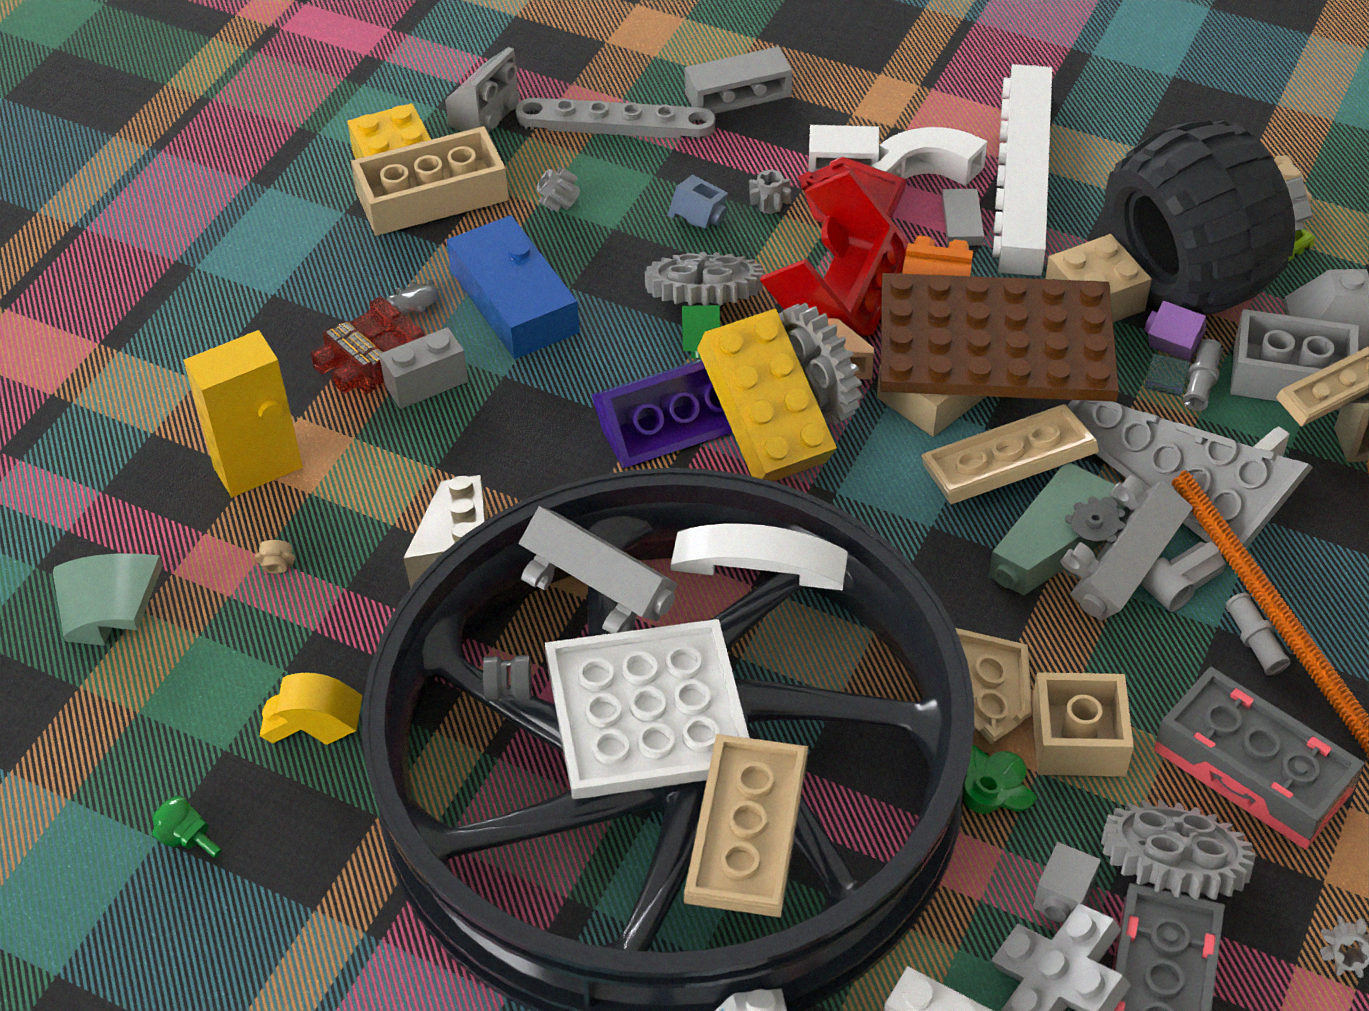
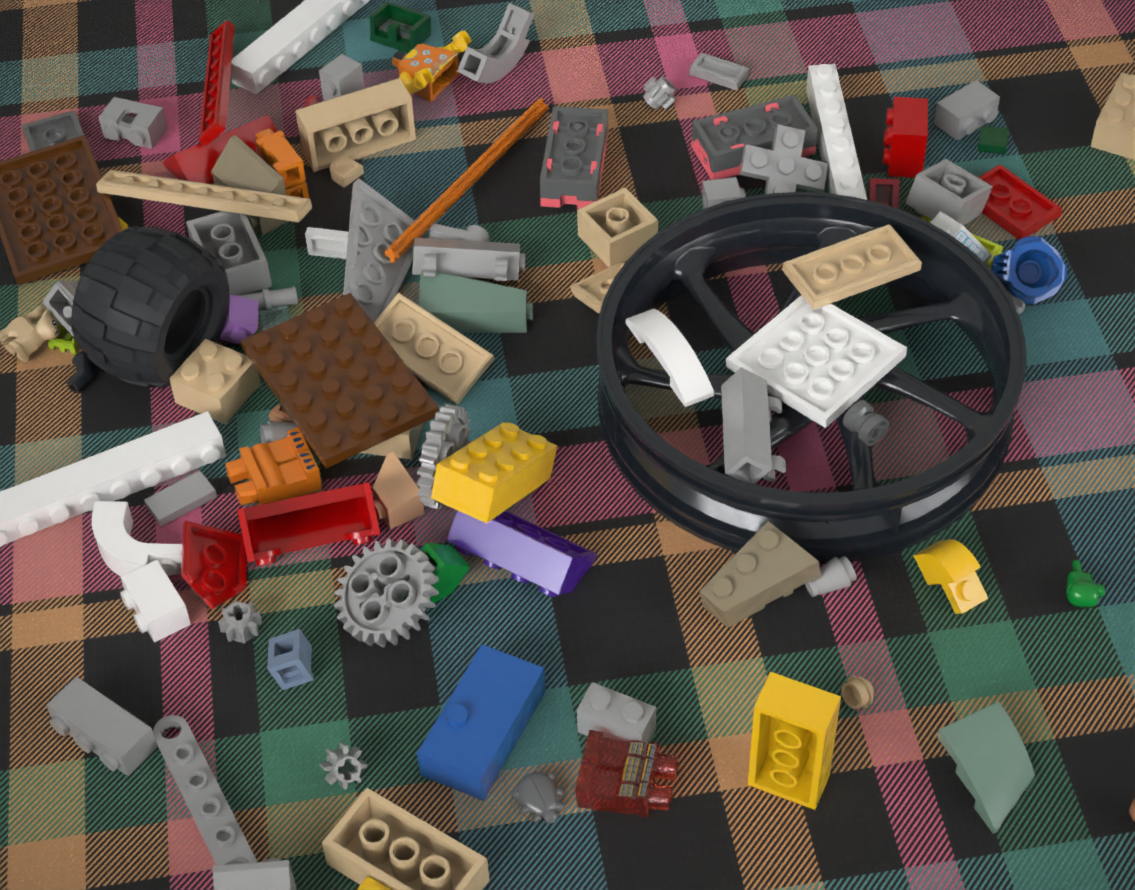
camera: 125 degrees left, 0 degrees up
(1097, 520) = (462, 272): dark grey piece -> none
(1178, 849) = (653, 174): light grey gear -> none
(1257, 634) = (476, 198): light grey pin -> none

